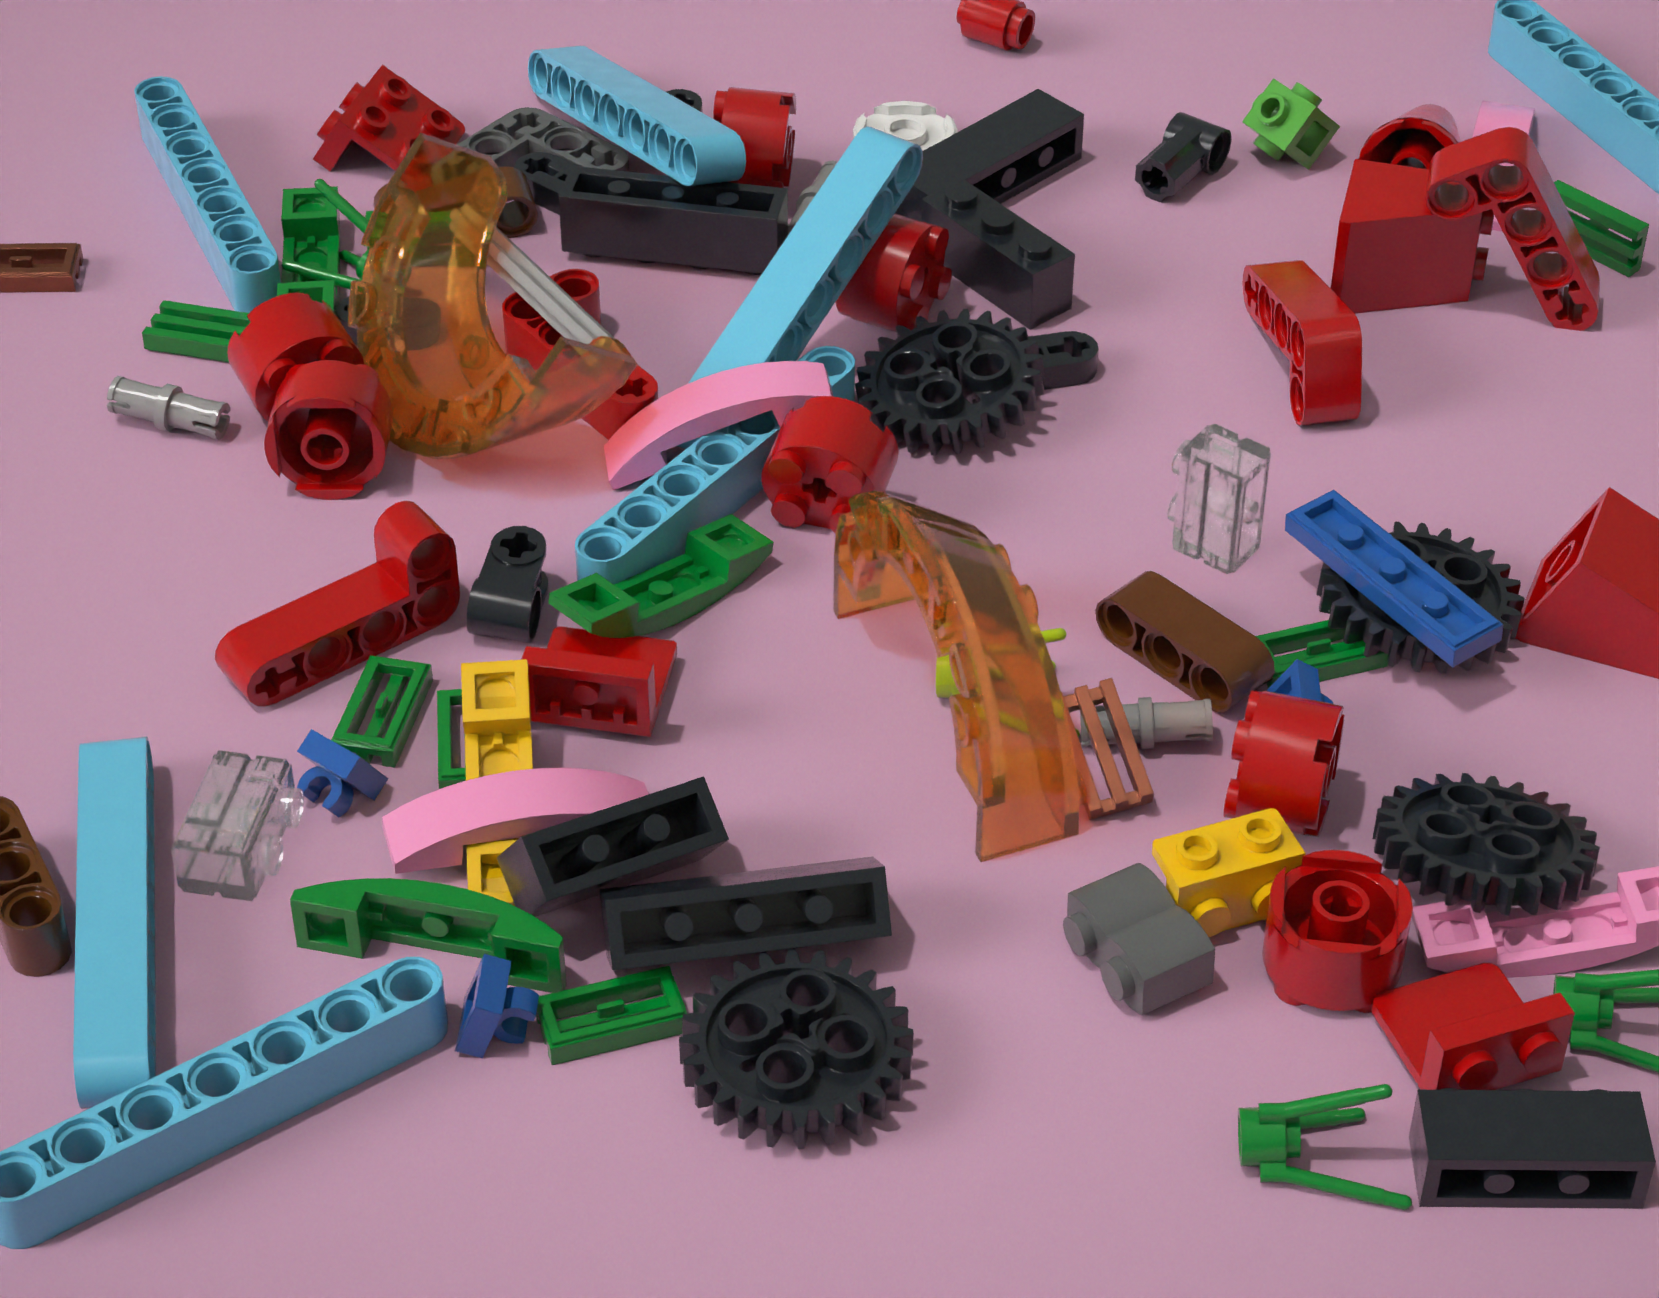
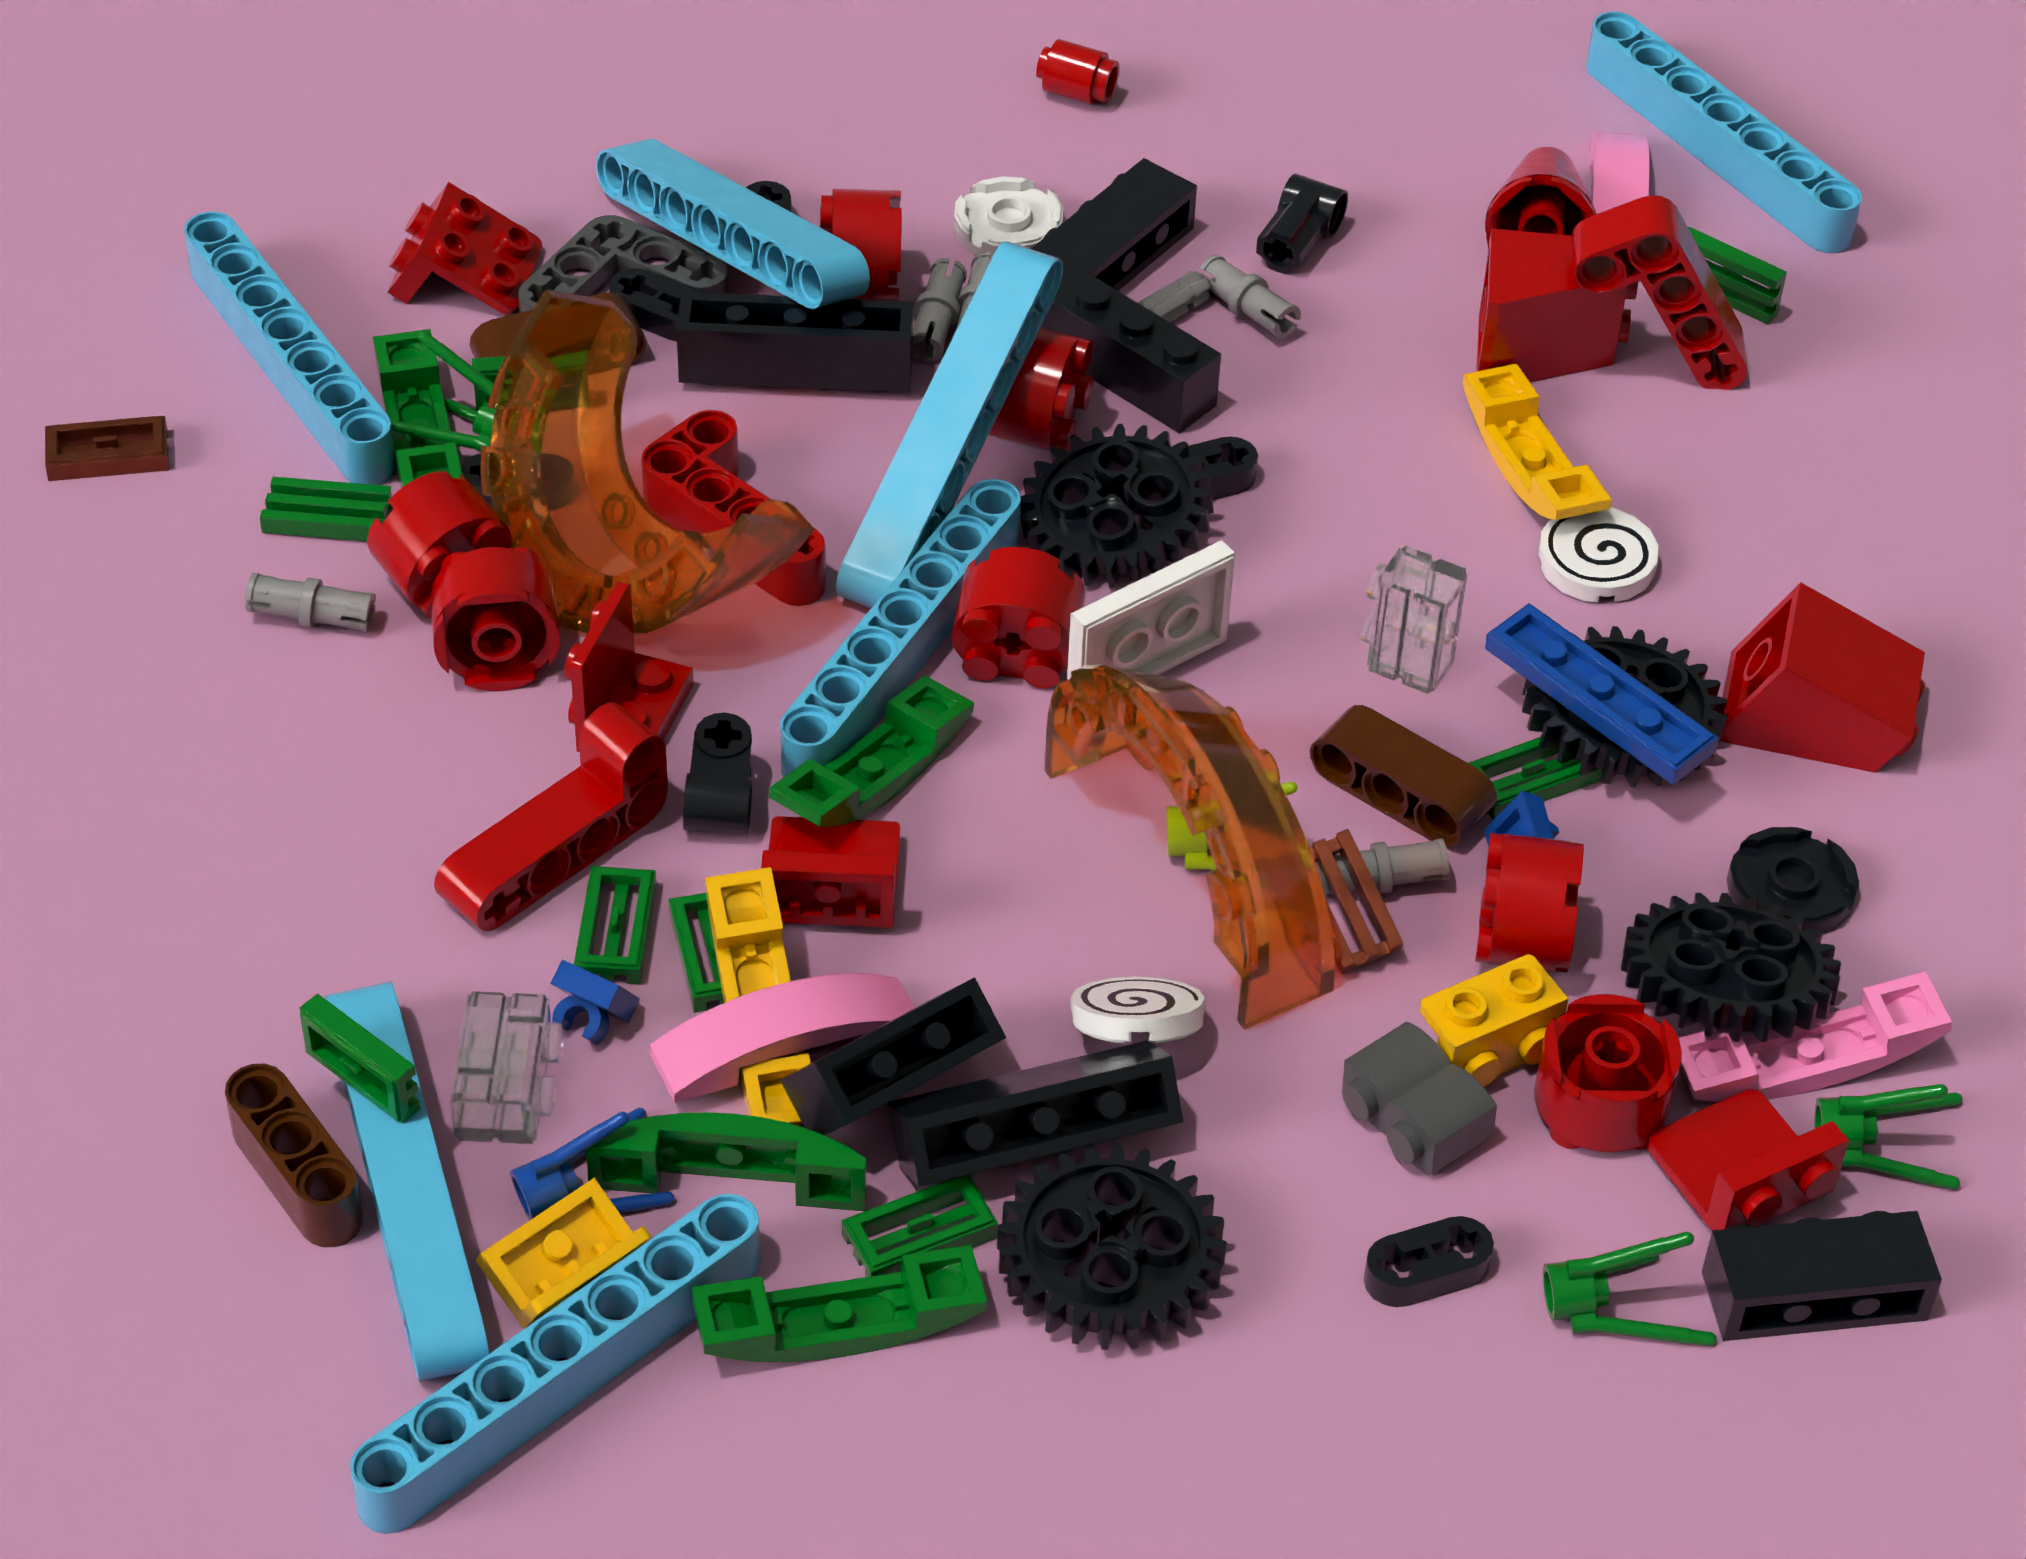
camera: 10 degrees left, 5 degrees up
(87, 796) = (359, 1058): none -> green tile
(242, 993) = (559, 1252): none -> yellow bracket
(253, 934) = (553, 1177): none -> blue plant
(427, 472) = (611, 671): none -> red bracket
(494, 1008) = (806, 1236): blue tile -> none
(507, 1089) = (842, 1316): none -> green slope
(541, 291) = (692, 450): light grey axle -> none
(708, 406) = (882, 562): bright pink slope -> none
(883, 827) = (1125, 1005): none -> white tile
(971, 473) = (1158, 617): none -> white tile
(1047, 215) = (1173, 300): none -> light grey axle
(1119, 215) = (1250, 297): none -> light grey pin
(1121, 1096) = (1430, 1265): none -> black beam
(1290, 123) = (1406, 177): bright green brick -> none
(1314, 333) = (1472, 420): red beam -> none
(1385, 389) = (1525, 450): none -> yellow slope
(1420, 461) = (1599, 555): none -> white tile
(1572, 768) = (1796, 873): none -> black tile

